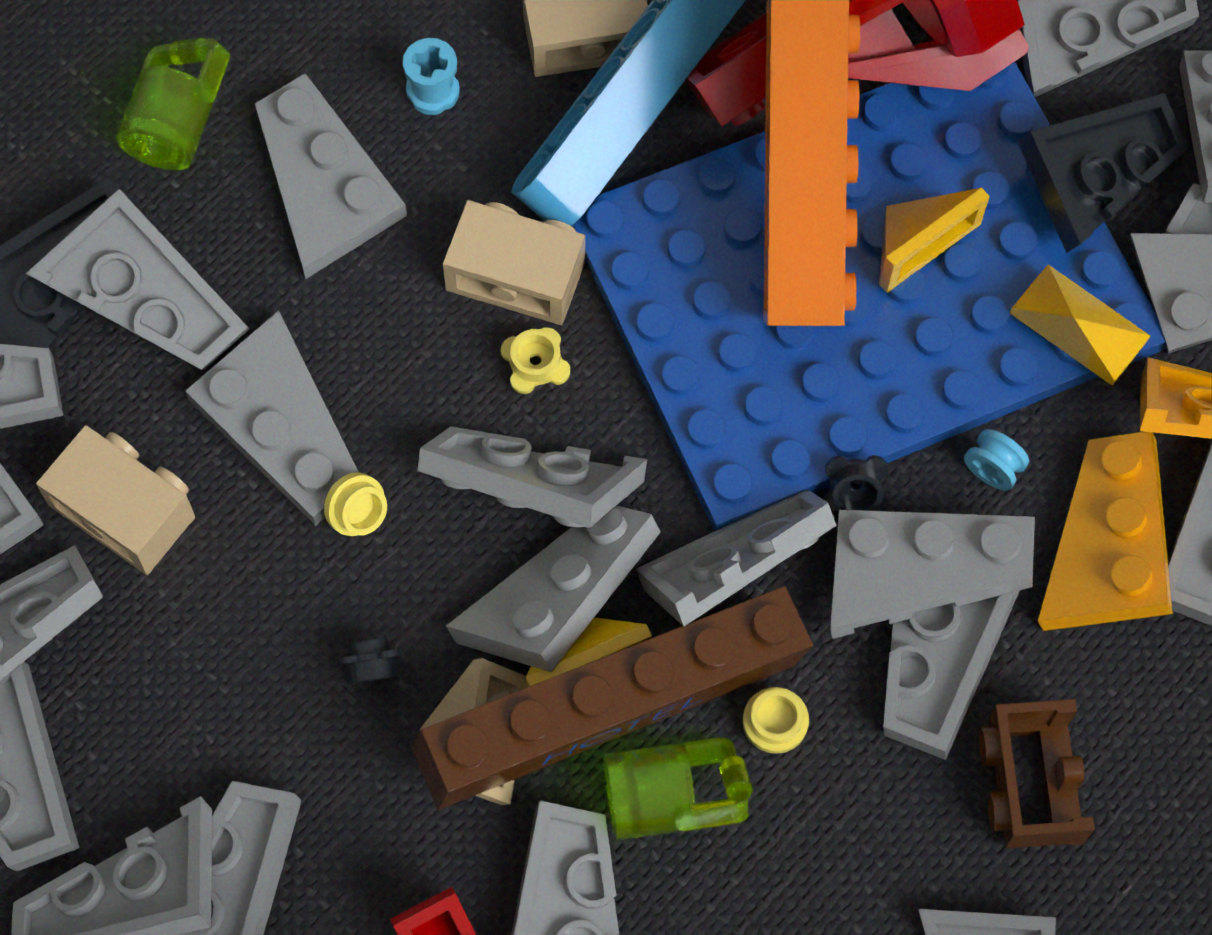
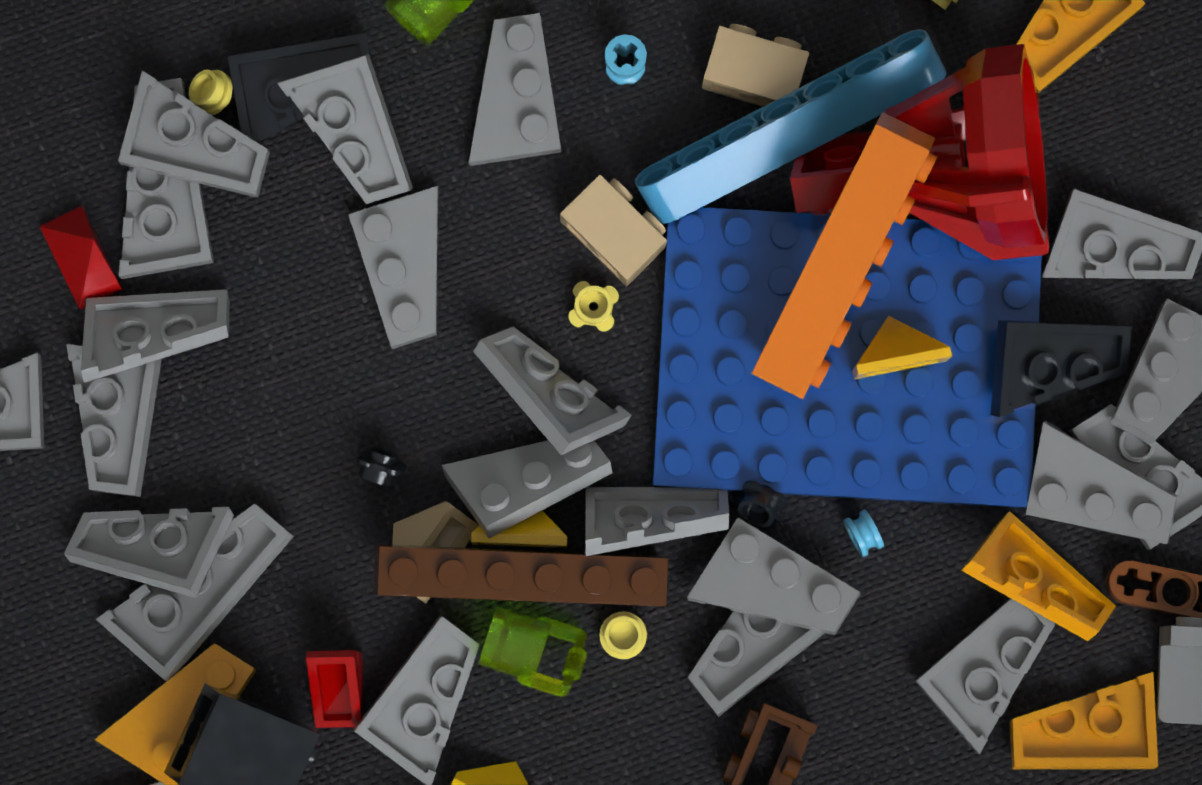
camera: 25 degrees right, 15 degrees up
(118, 498) = (268, 271): tan brick -> none
(355, 505) = (422, 353): light yellow plate -> none
(1080, 324) = (971, 468): yellow slope -> none
(1113, 539) = (910, 627): light orange wing -> none

